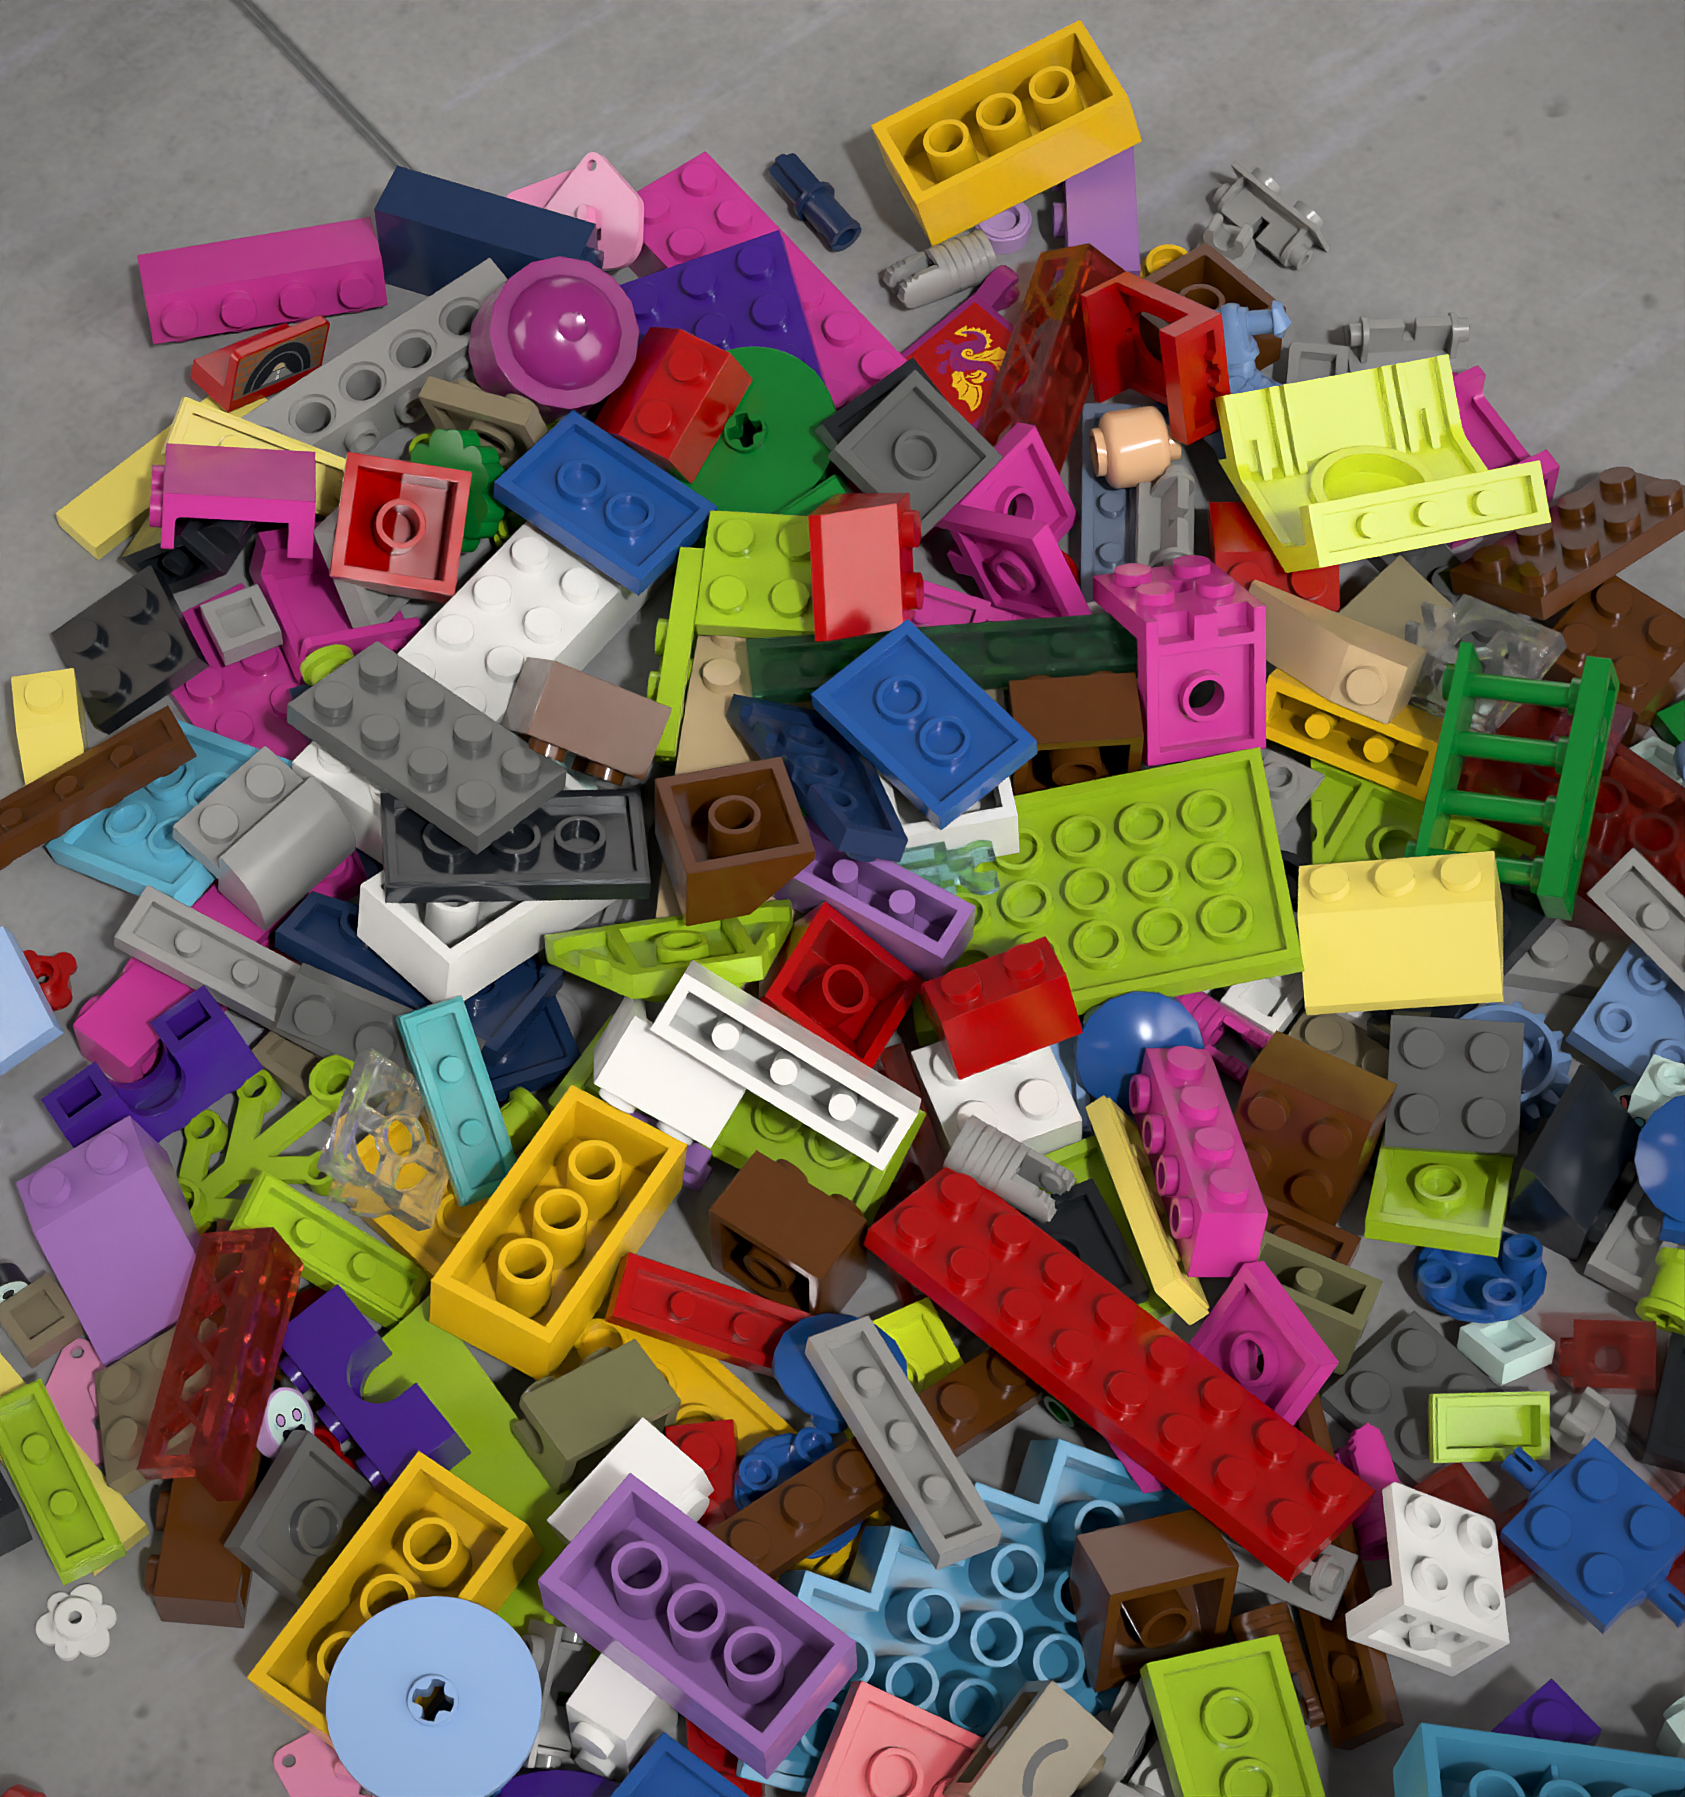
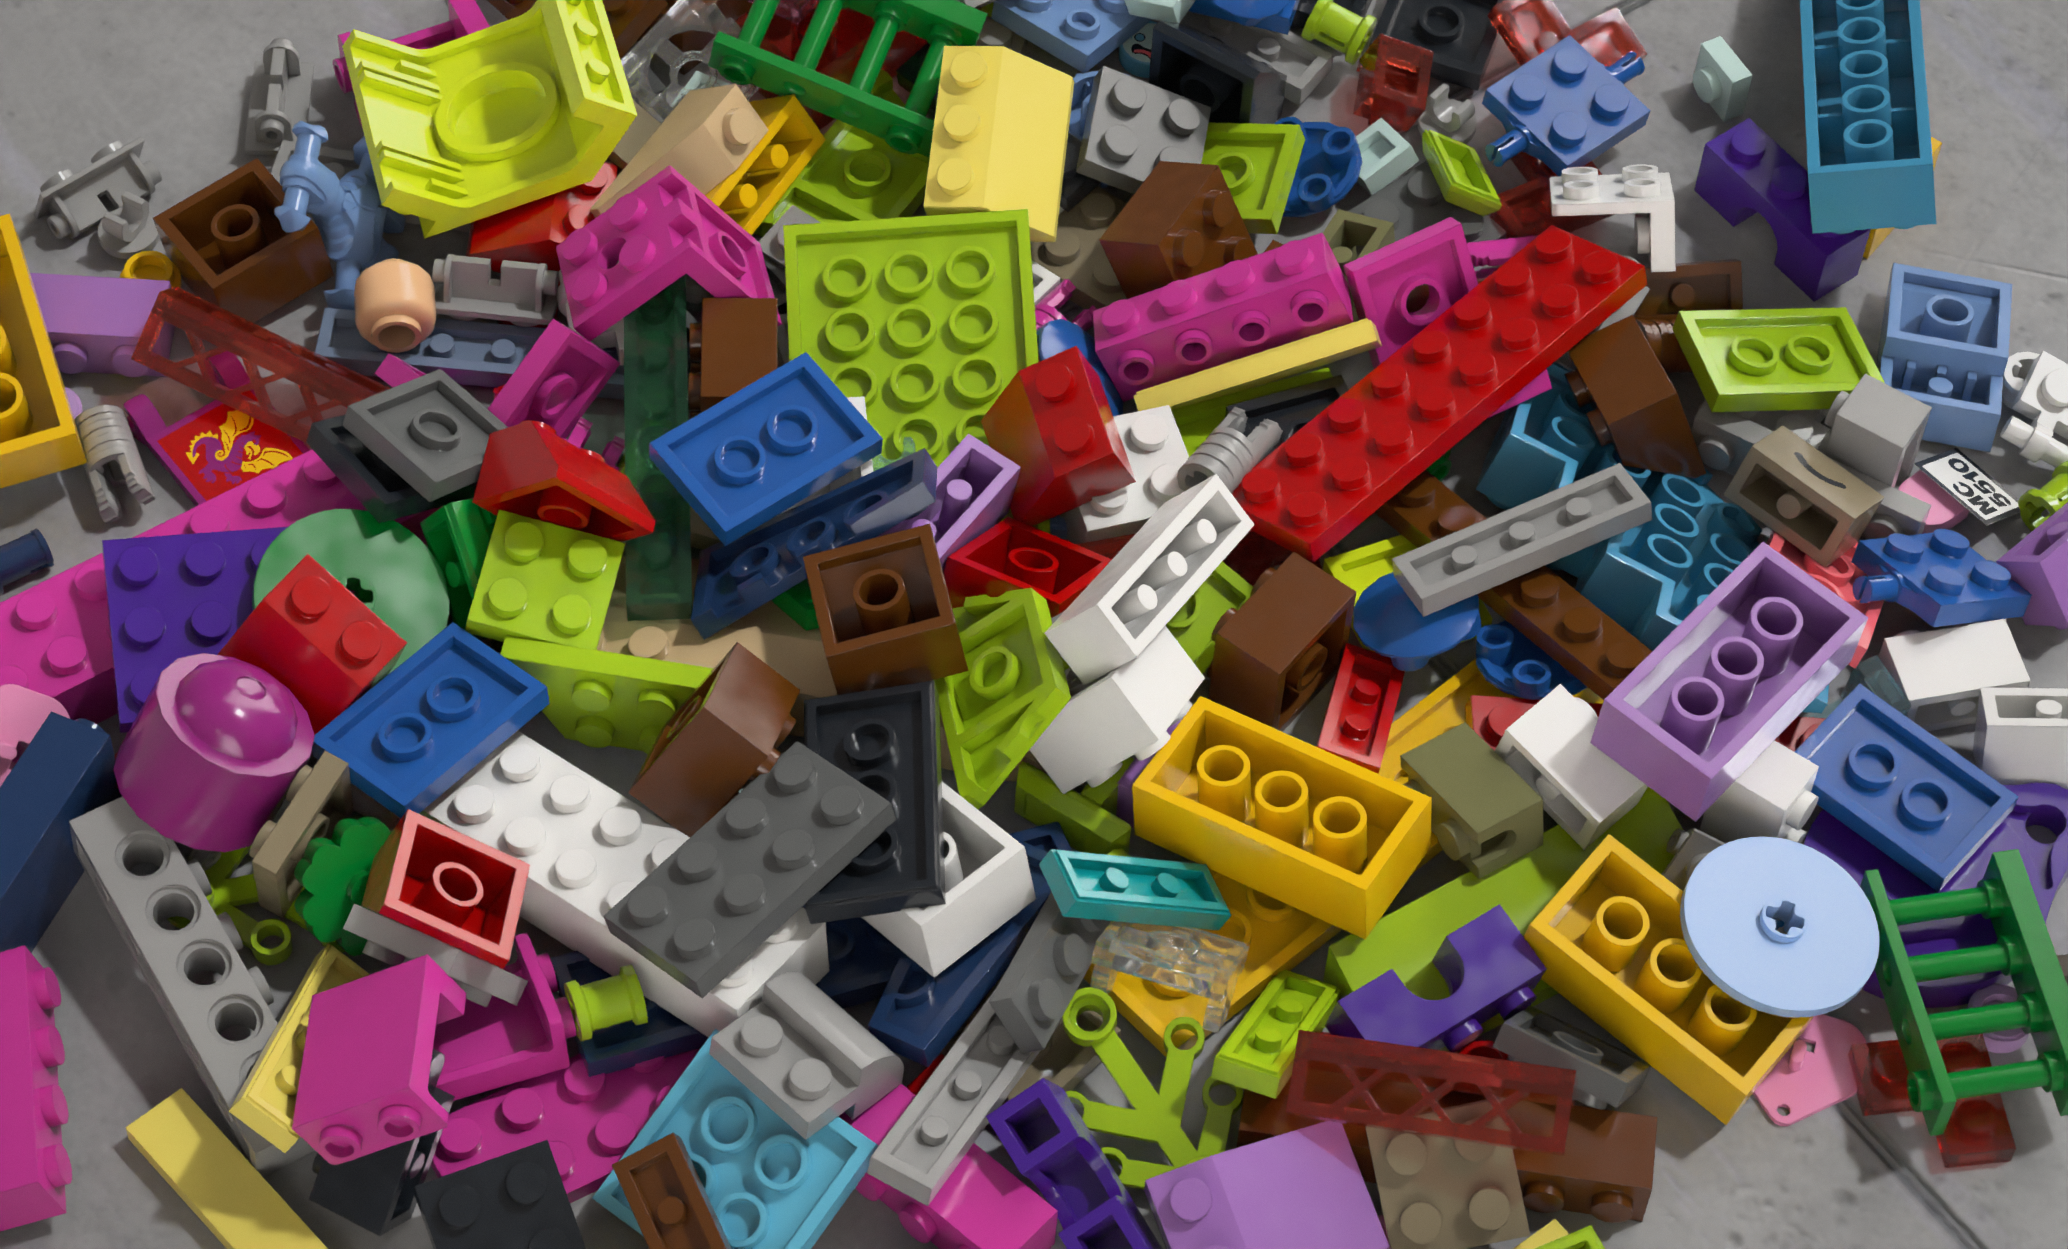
camera: 90 degrees left, 5 degrees down
(241, 624) = (499, 1105): light grey plate -> none
(262, 363) = (126, 1092): panel -> none
(1191, 350) = (293, 296): red panel -> none

